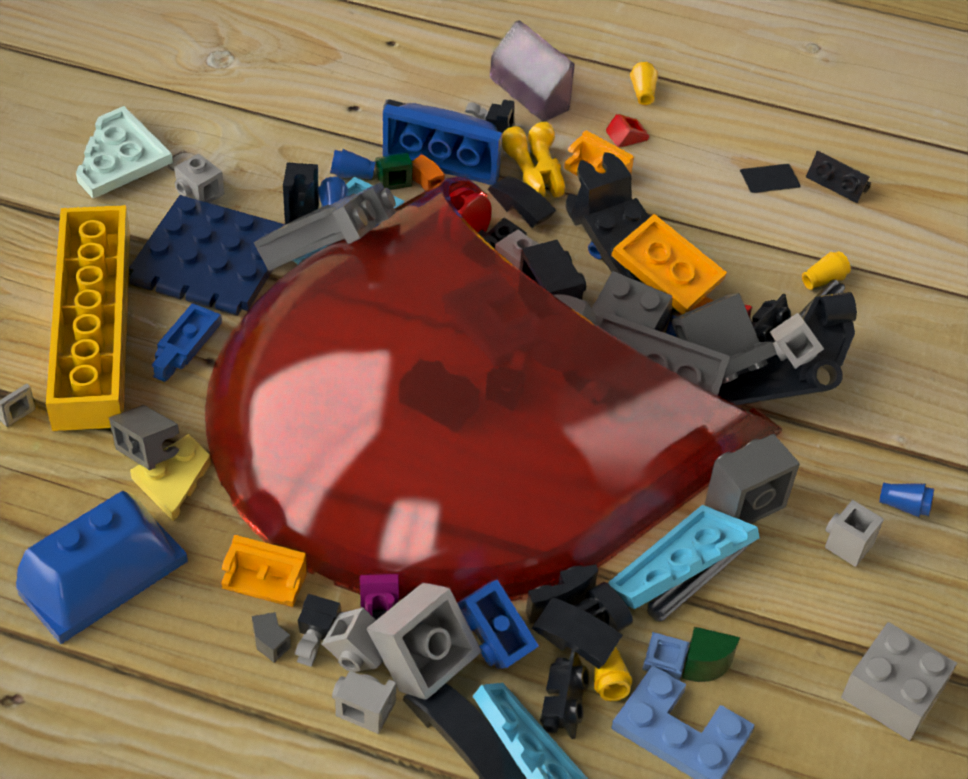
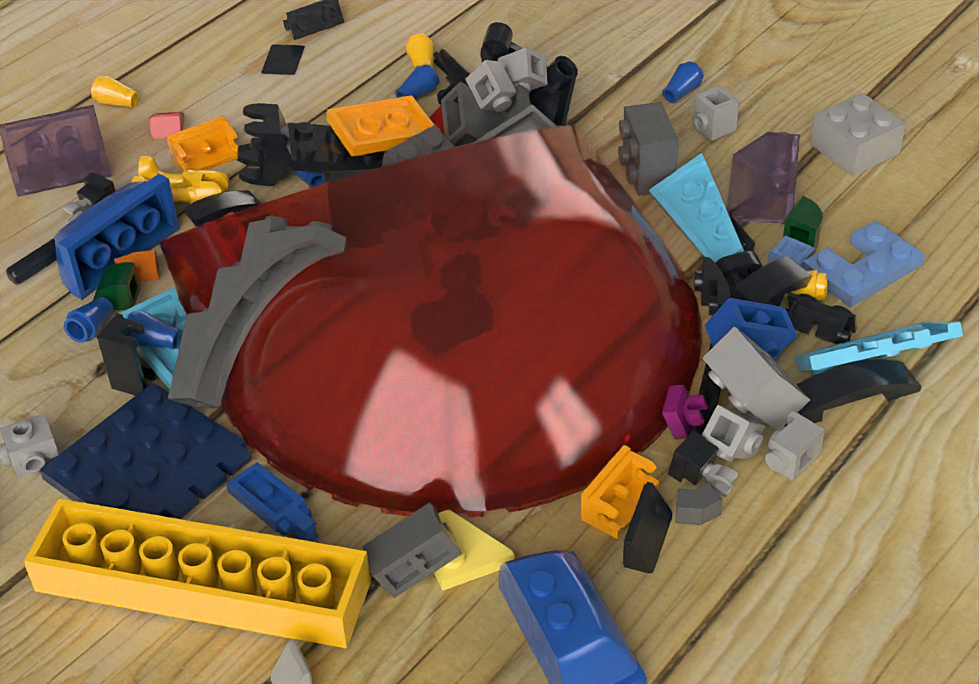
camera: 65 degrees left, 5 degrees down
(224, 601) = (646, 531): none -> black slope
(753, 321) = (491, 86): none -> light grey brick
(774, 609) = (764, 179): none -> slope
(775, 281) = (419, 83): none -> blue cone

